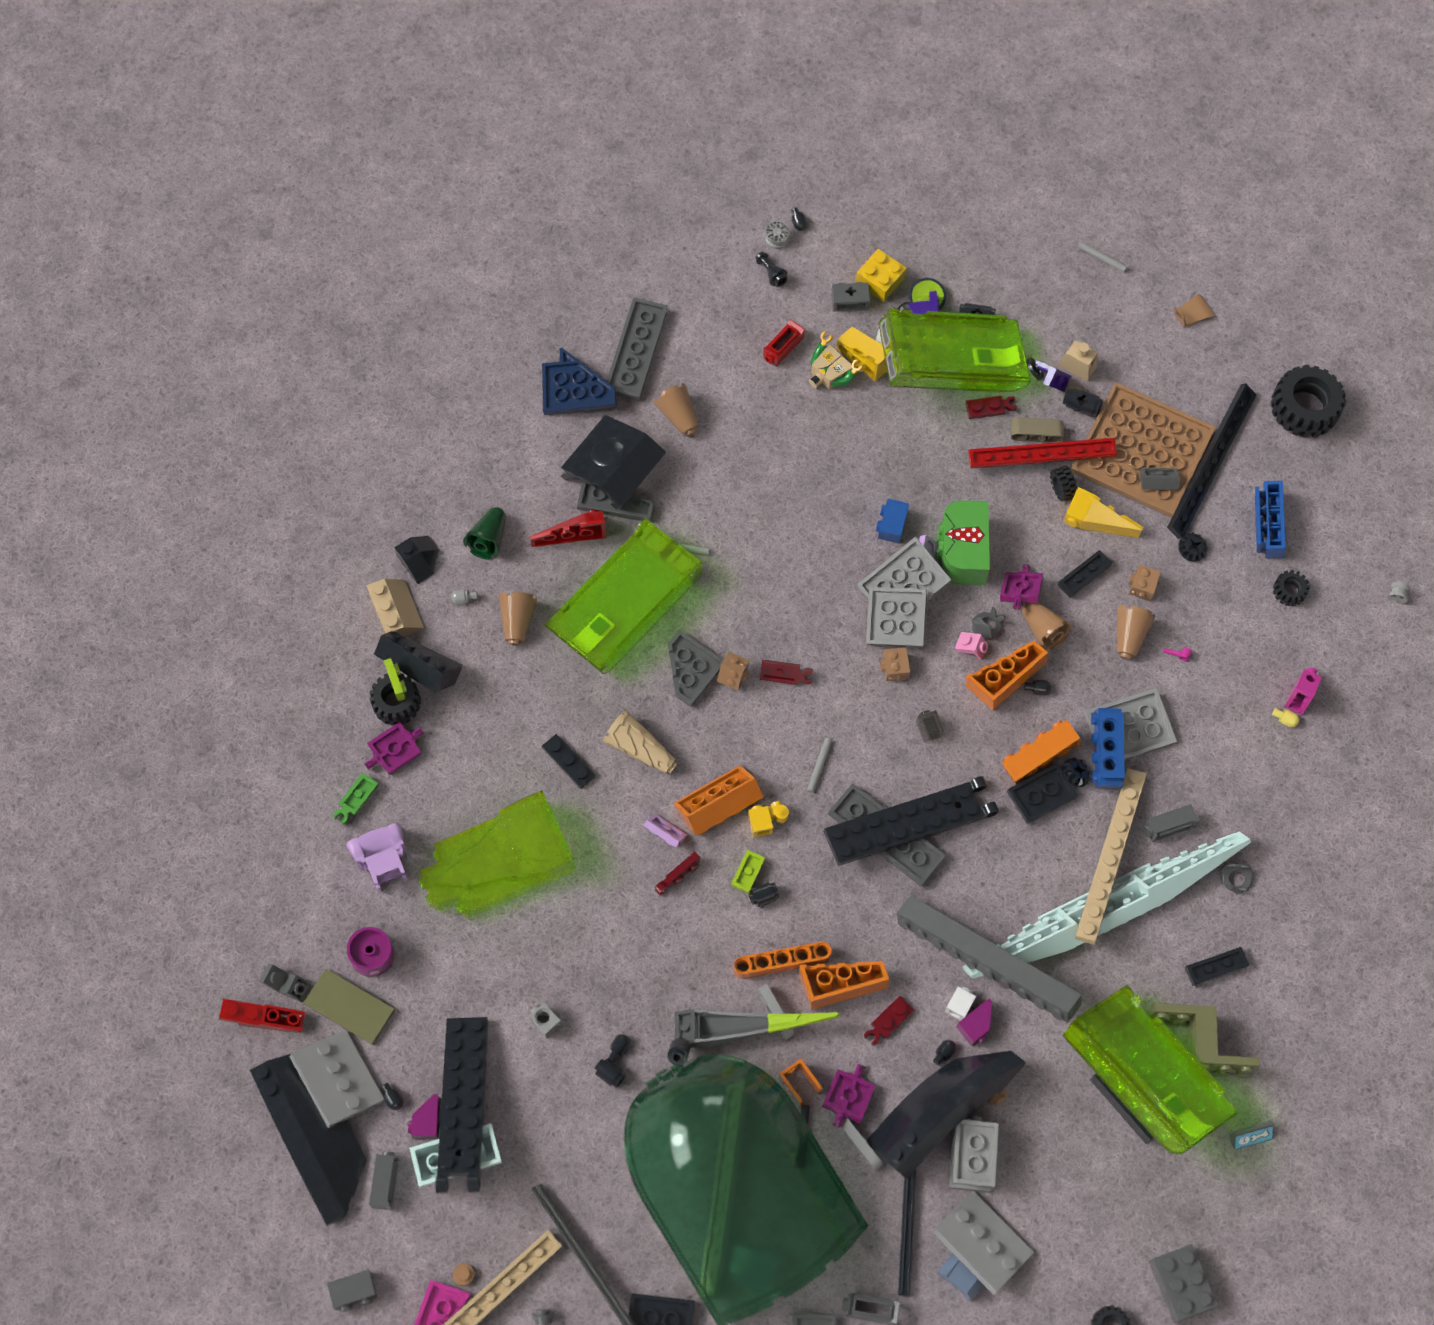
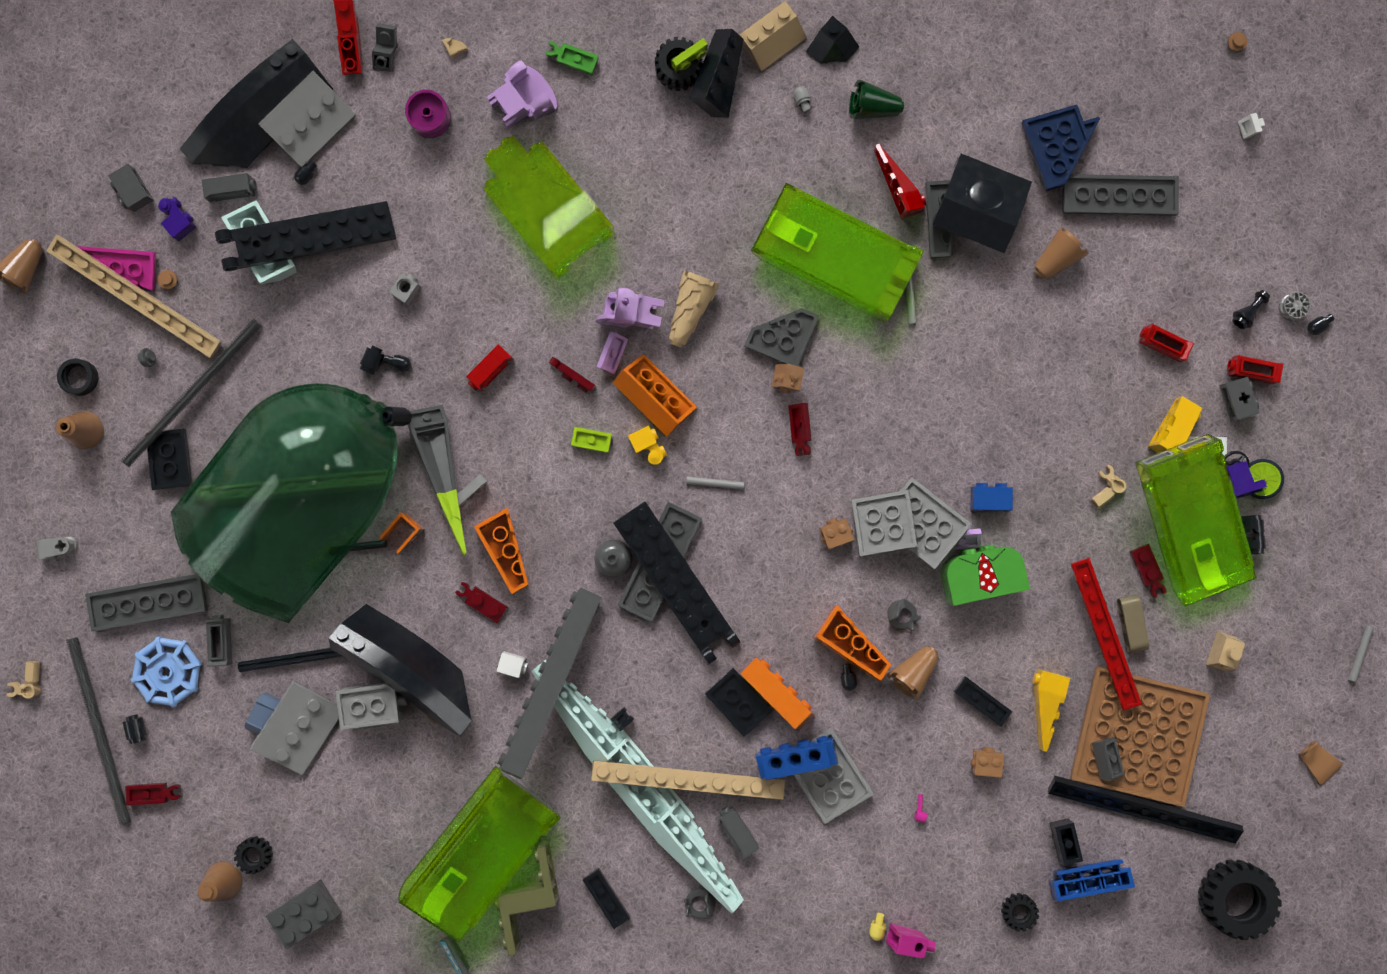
camera: 80 degrees right, 20 degrees up
(306, 913) = (454, 47): none -> tan tile
(349, 1006) = (377, 111): olive tile -> none
(394, 748) = (630, 78): magenta plate -> none
(404, 1243) = (178, 223): none -> dark purple brick
(426, 1120) = (288, 207): magenta slope -> none
(516, 615) = (792, 154): medium nougat cone -> none
(524, 224) = (1237, 41): none -> medium nougat plate
(568, 761) = (660, 244): black plate -> none
(604, 230) = (1250, 125): none -> white tile
(631, 792) = (630, 310): none -> lavender piece
(649, 954) = (489, 368): none -> red window
(764, 894) = (572, 459): black brick -> none
(789, 953) = (506, 484): orange beam -> none
(820, 292) = (1235, 368): none -> red window
(831, 367) = (1150, 397): torso -> none
(848, 1095) = (401, 580): magenta plate -> none
(862, 1146) = (362, 597): light grey beam -> none
(873, 879) = (613, 558): none -> dark grey cylinder
(881, 274) = (1274, 425): yellow brick -> none
(906, 414) = (1115, 485): none -> tan bar
(929, 725) = (780, 579): clear smoke brick -> none
(944, 1051) = (465, 659): black cylinder -> none
(972, 644) = (876, 604): bright pink bracket -> none
(976, 1024) = (496, 683): magenta slope -> none
(1021, 587) = (949, 641): magenta plate -> none
(1037, 907) = (622, 719): none -> black wheel
(1054, 377) = (1197, 632): dark purple piece -> none
(1063, 483) = (1076, 661): black tyre -> none
(1072, 775) = (760, 730): black gear -> none
(1090, 408) = (1180, 675): black piece -> none
(1132, 629) = (929, 759): medium nougat cone -> none
(1192, 554) = (1042, 797): black gear -> none
(1230, 531) = (1066, 841): none -> black brick

